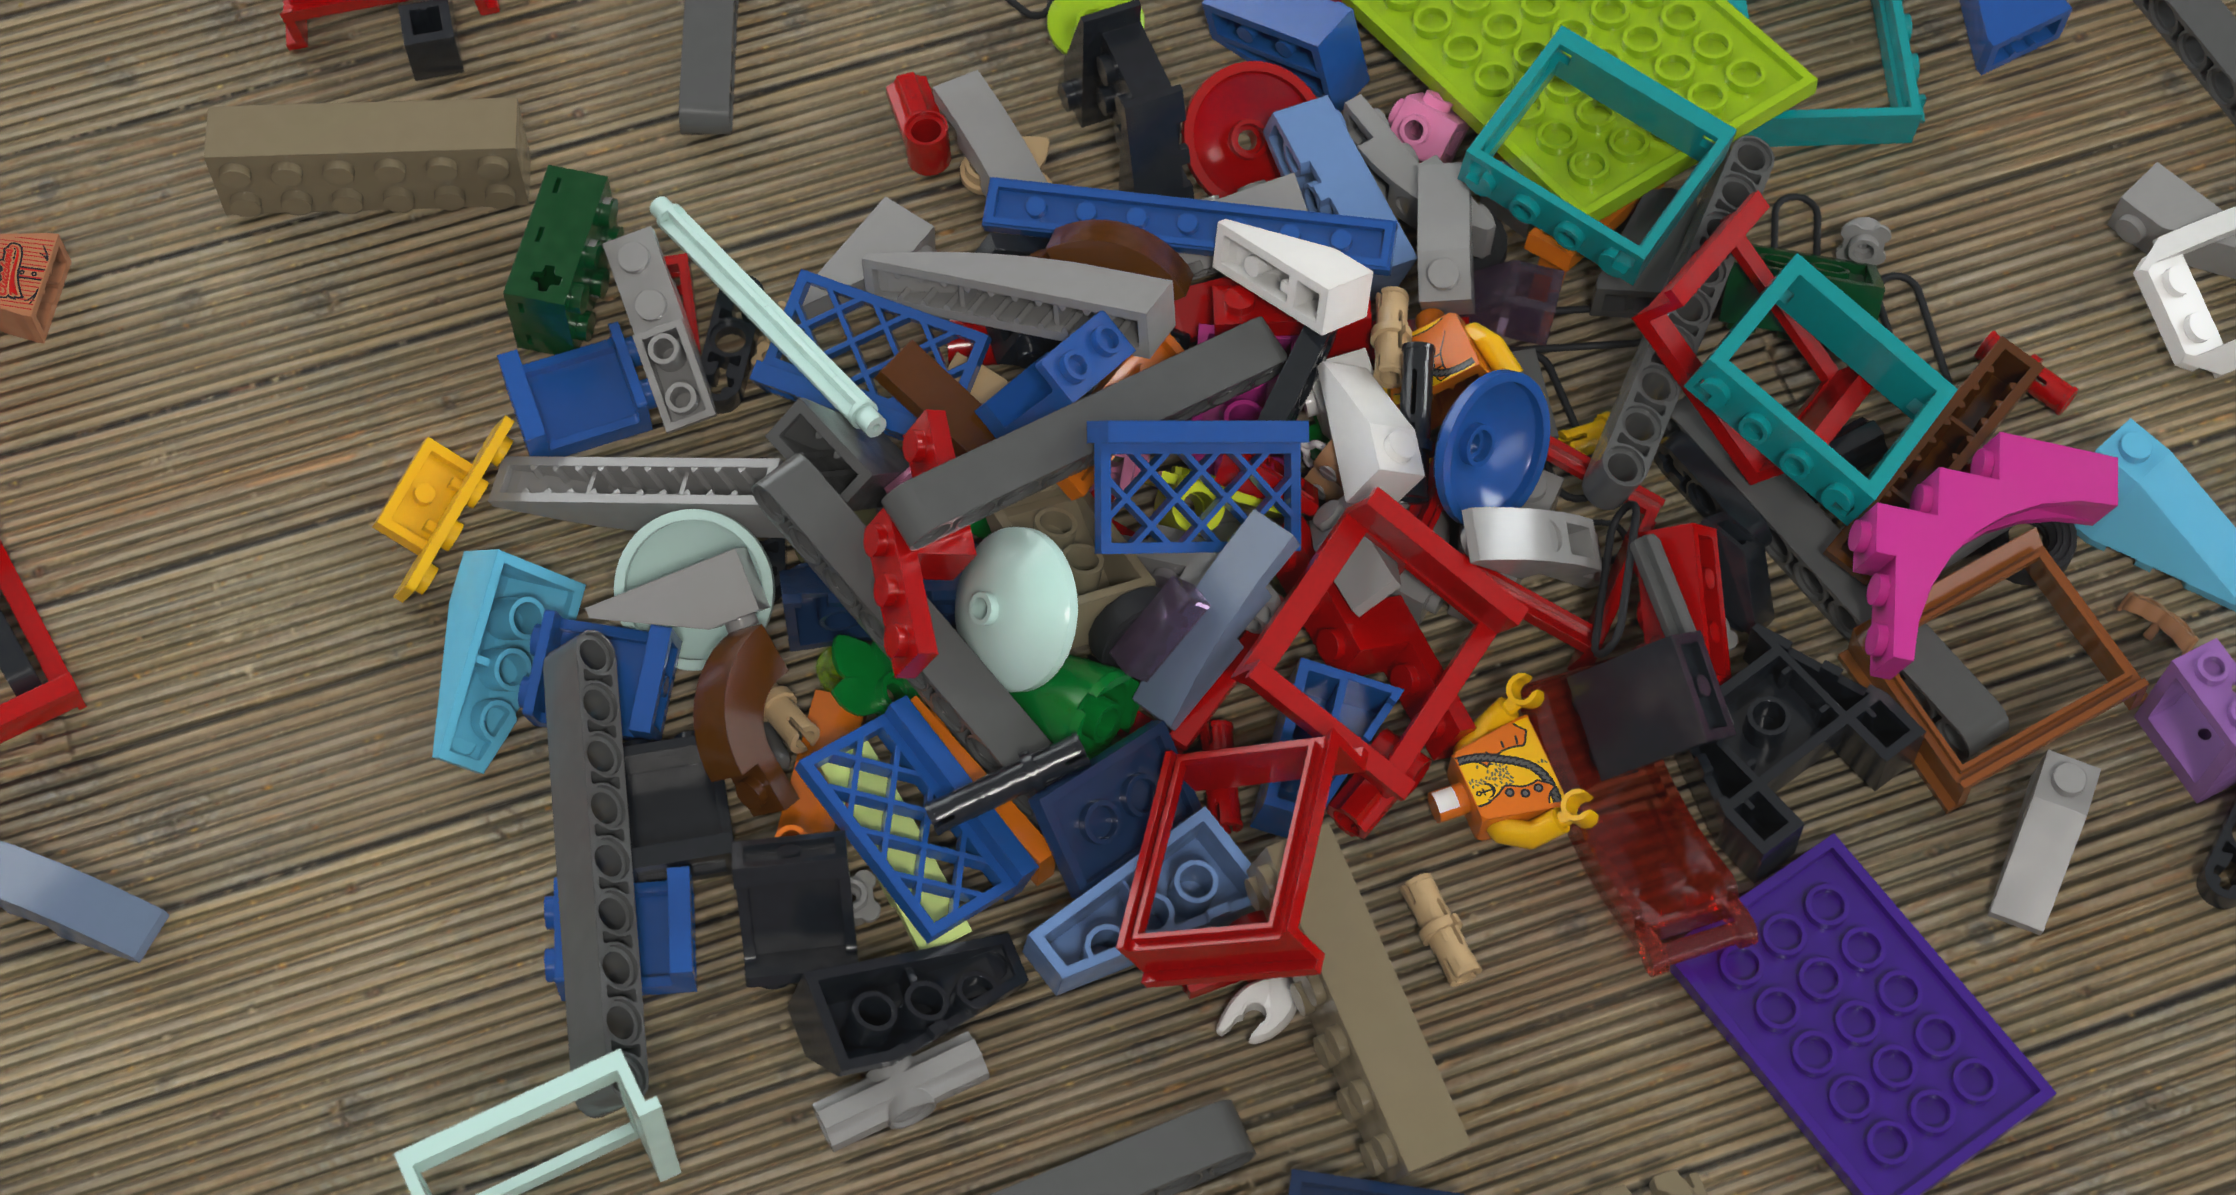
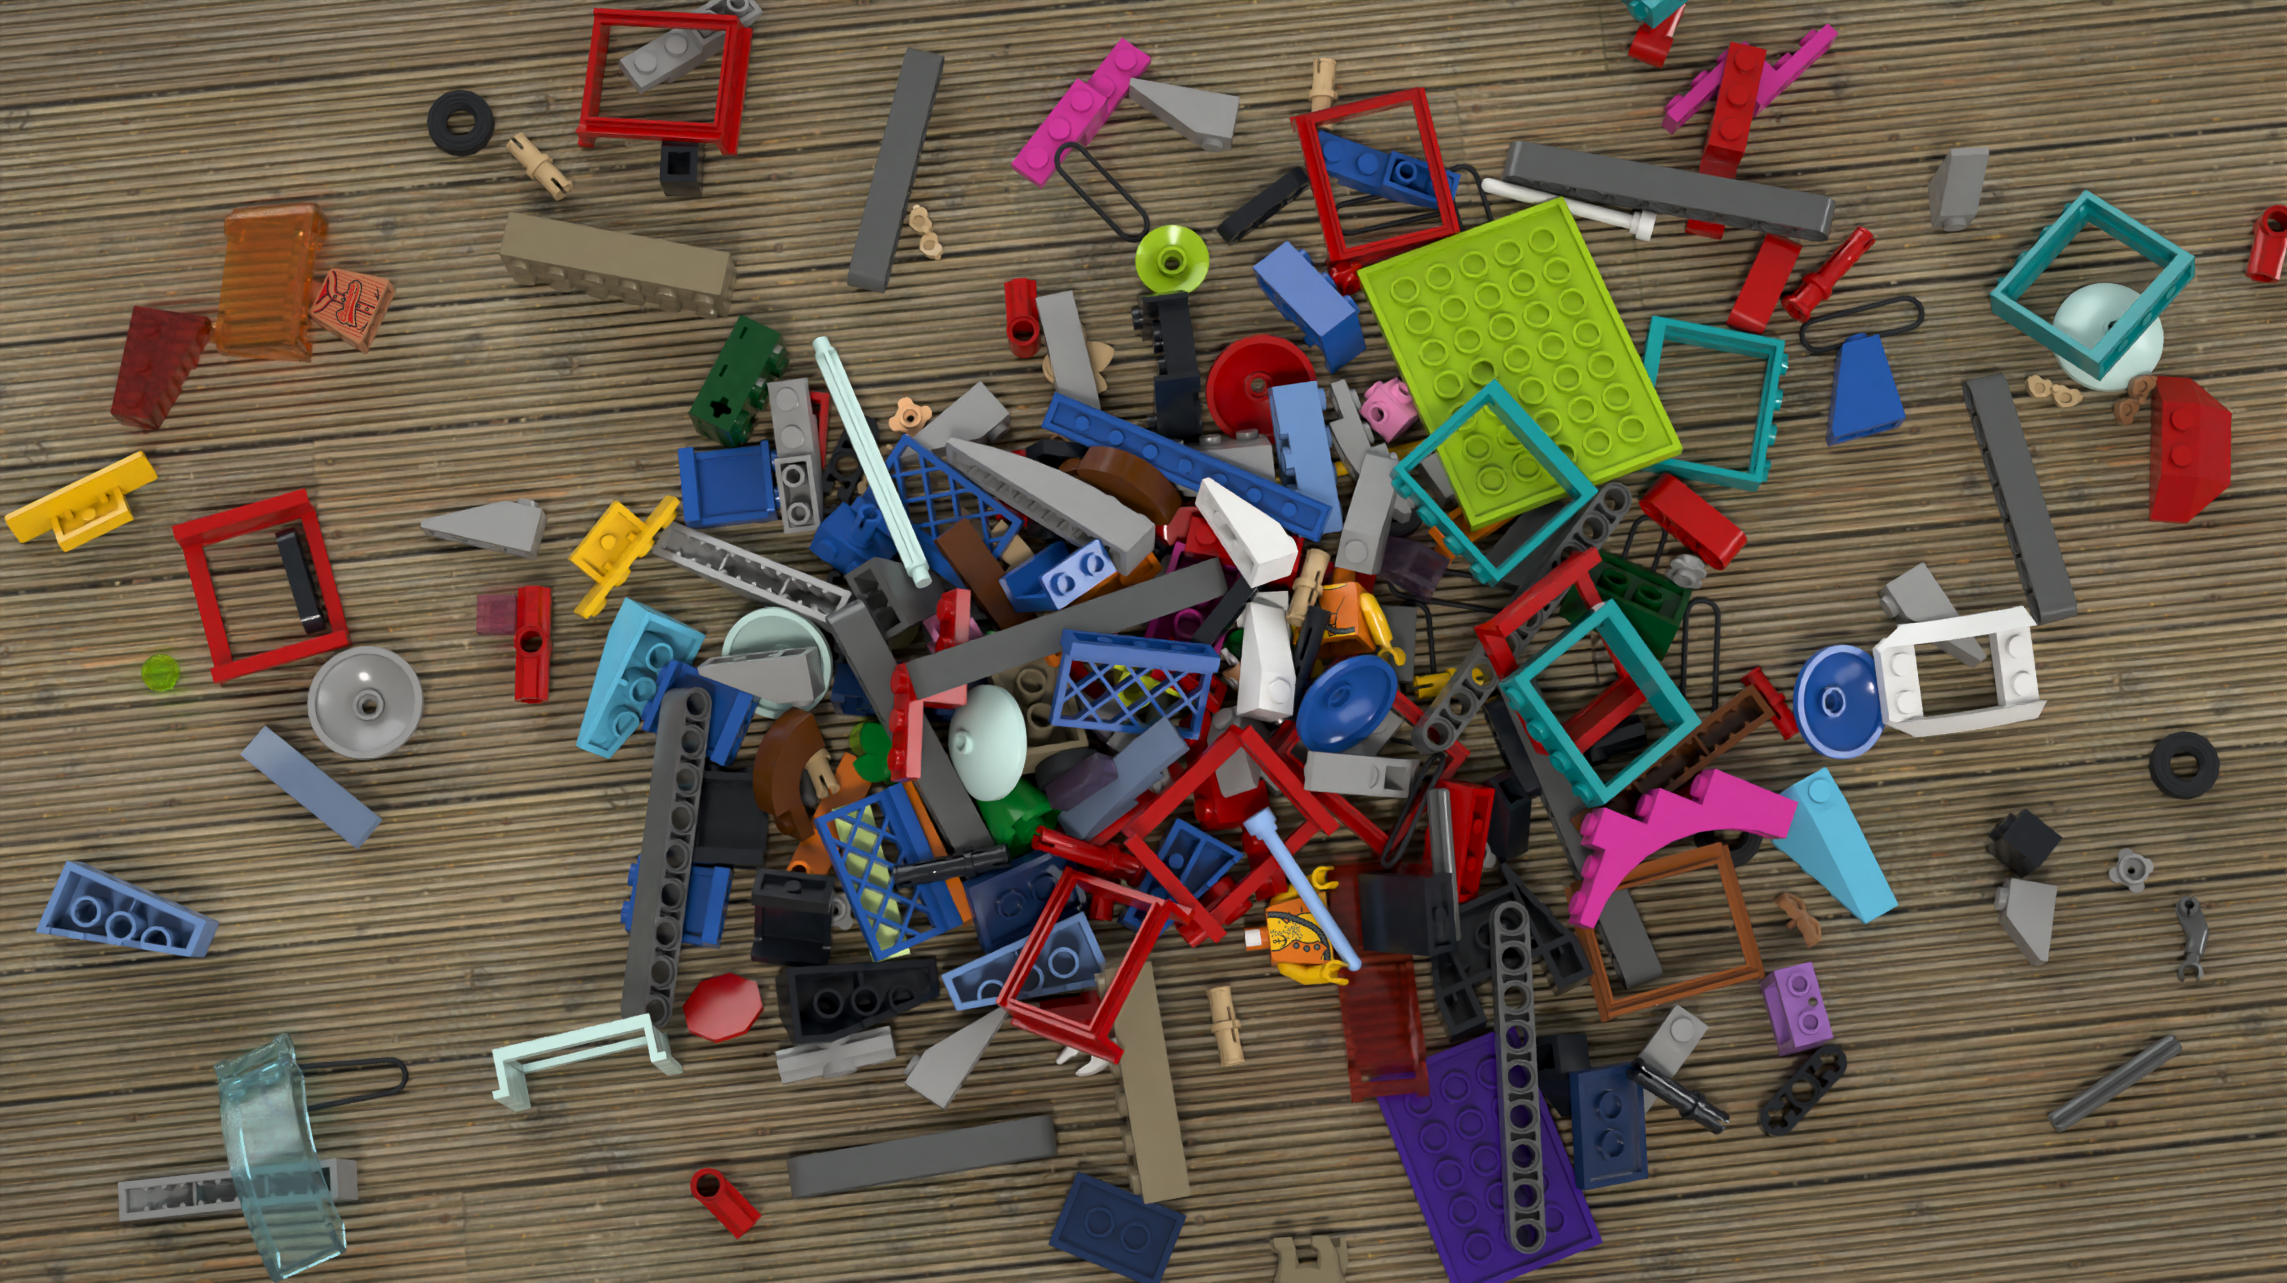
camera: 15 degrees right, 15 degrees up
(101, 741) = (350, 683): none -> light grey dish
(114, 25) = (460, 101): none -> black tyre
(238, 75) = (539, 166): none -> tan pin
(263, 509) = (496, 527): none -> light grey slope
(286, 615) = (496, 615): none -> clear pink tile
(347, 670) = (533, 620): none -> red piece
(721, 1062) = (723, 1007): none -> piece
(750, 410) = (852, 538): none -> blue brick
(762, 51) = (921, 224): none -> tan piece
(793, 258) = (908, 408): none -> light nougat plate
(1067, 1060) = (949, 1063): none -> light grey slope
(1190, 728) = (1105, 859): none -> red pin
(1424, 640) = (1263, 827): none -> light blue piece
(1849, 181) = (1692, 521): none -> red beam
(1866, 911) = (1528, 1093): none -> dark grey beam
(1924, 879) = (1555, 1059): none -> black slope
(2012, 929) = (1607, 1127): none -> dark blue plate
(2105, 878) = (1691, 1104): none -> black pin
(2114, 344) = (1852, 711): none -> blue dish

